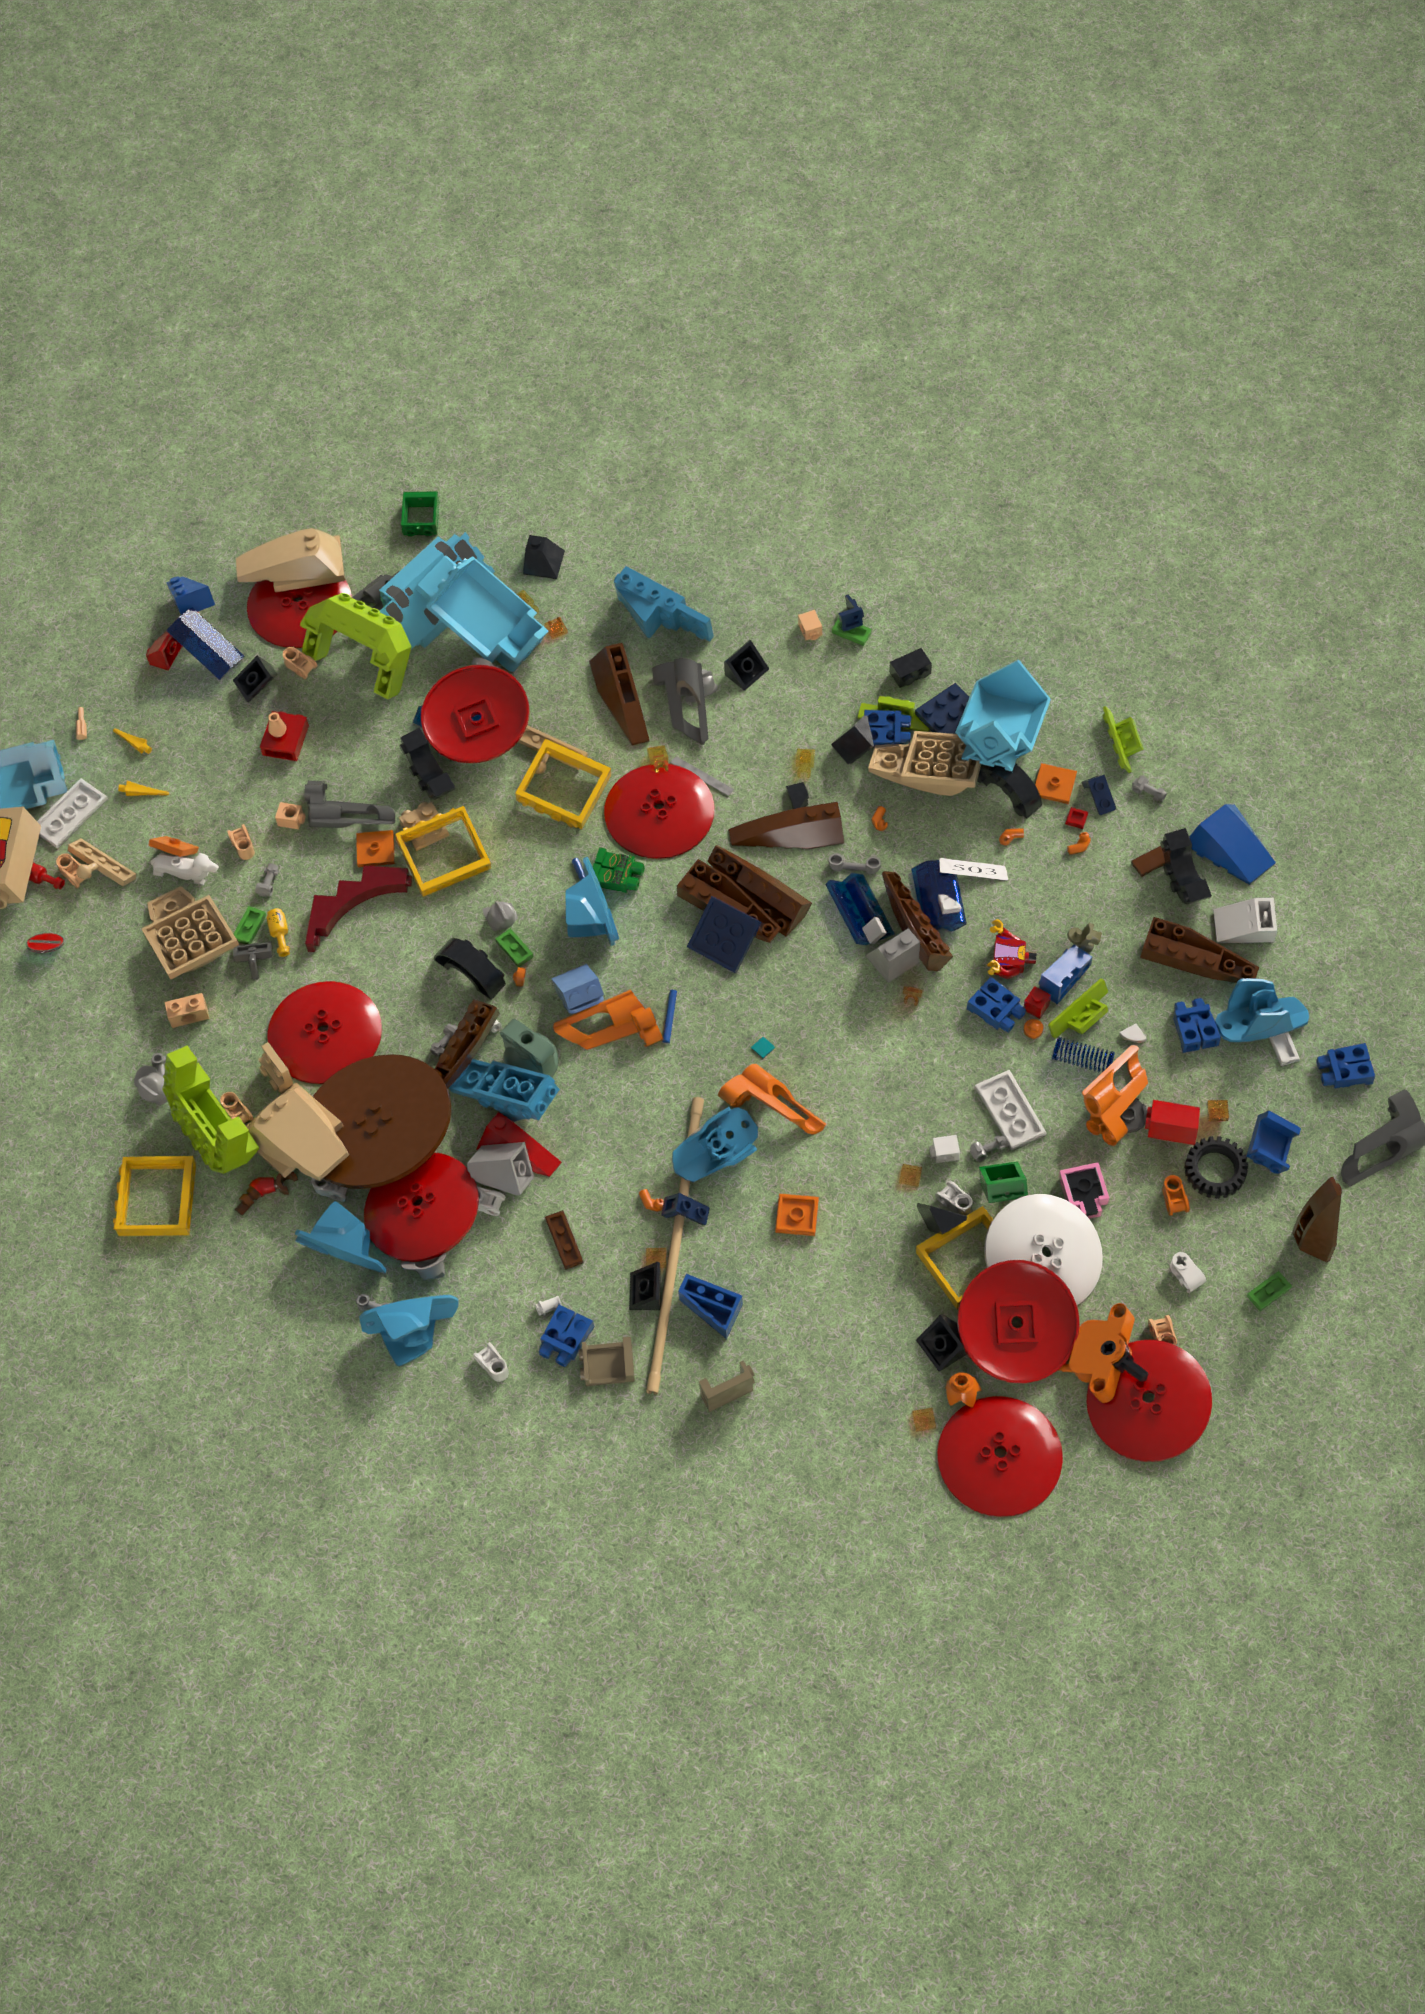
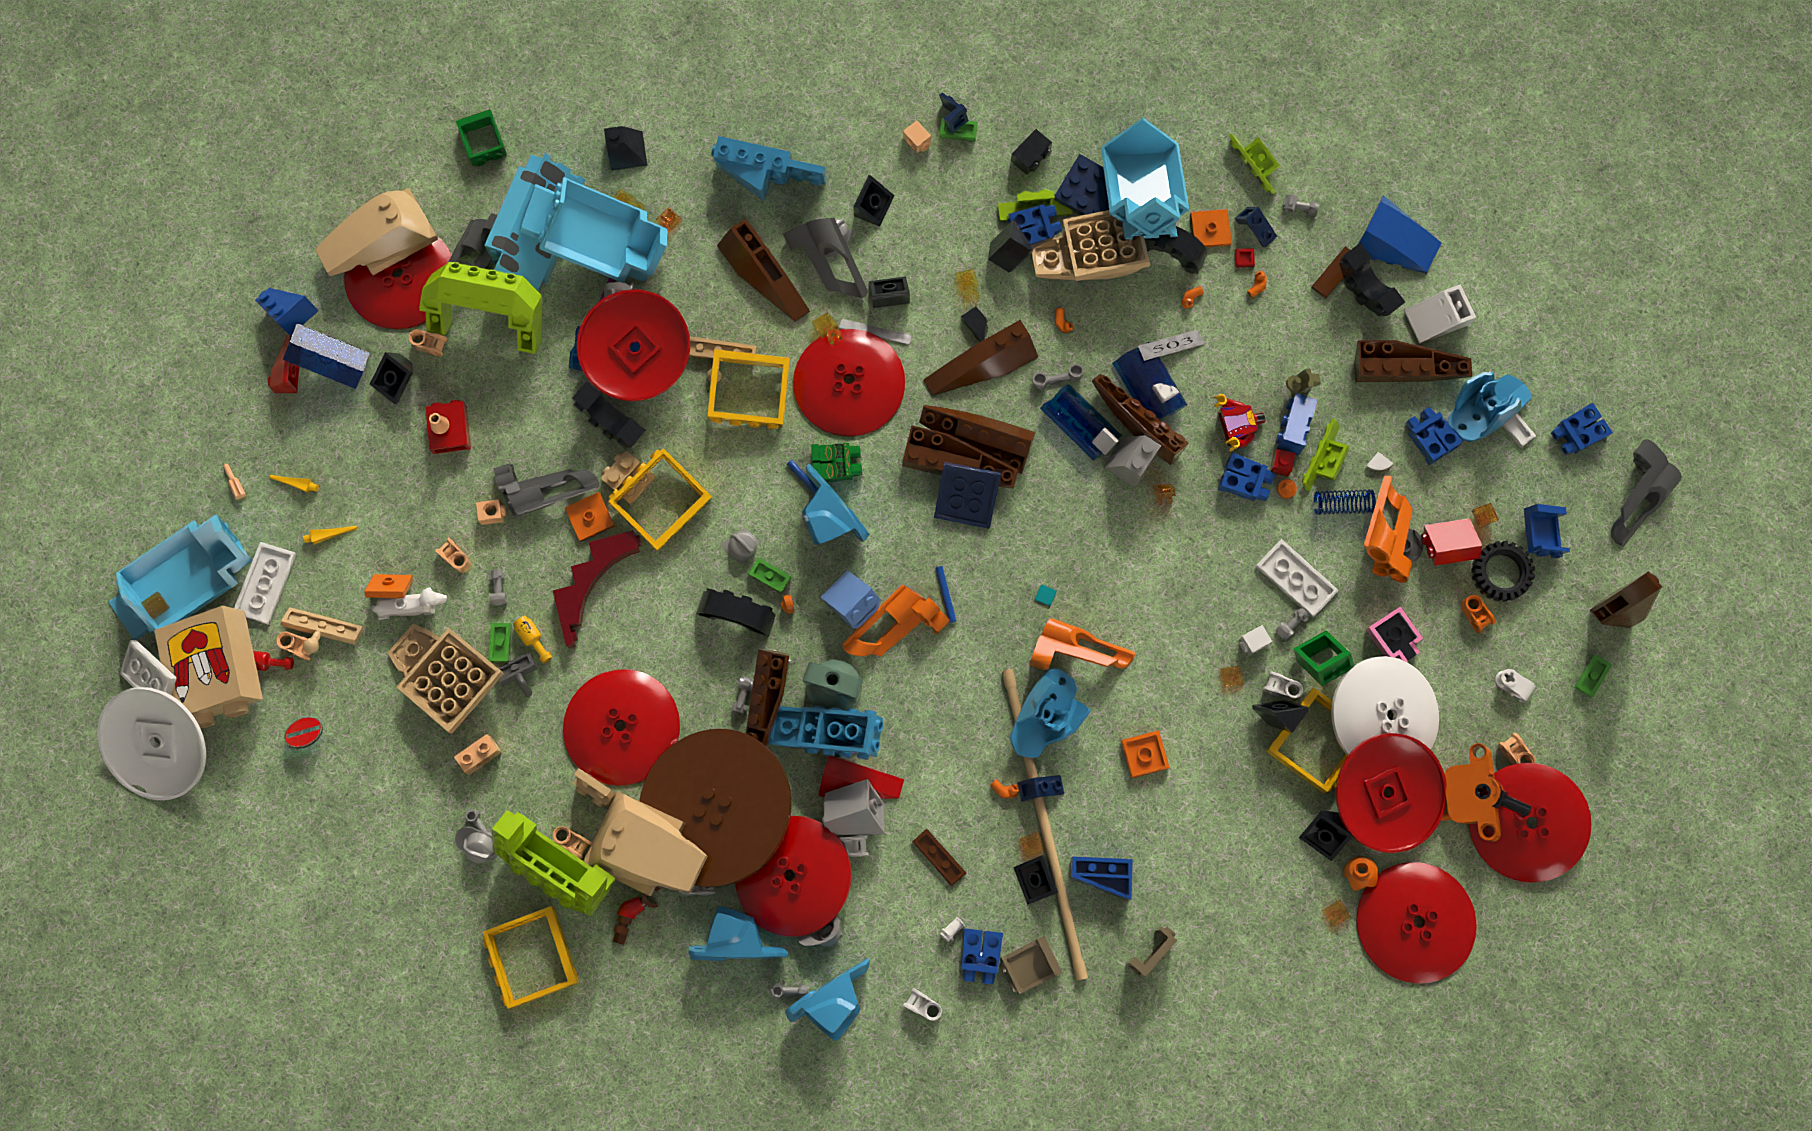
camera: 25 degrees left, 15 degrees up
(728, 747) = (889, 292): none -> black slope

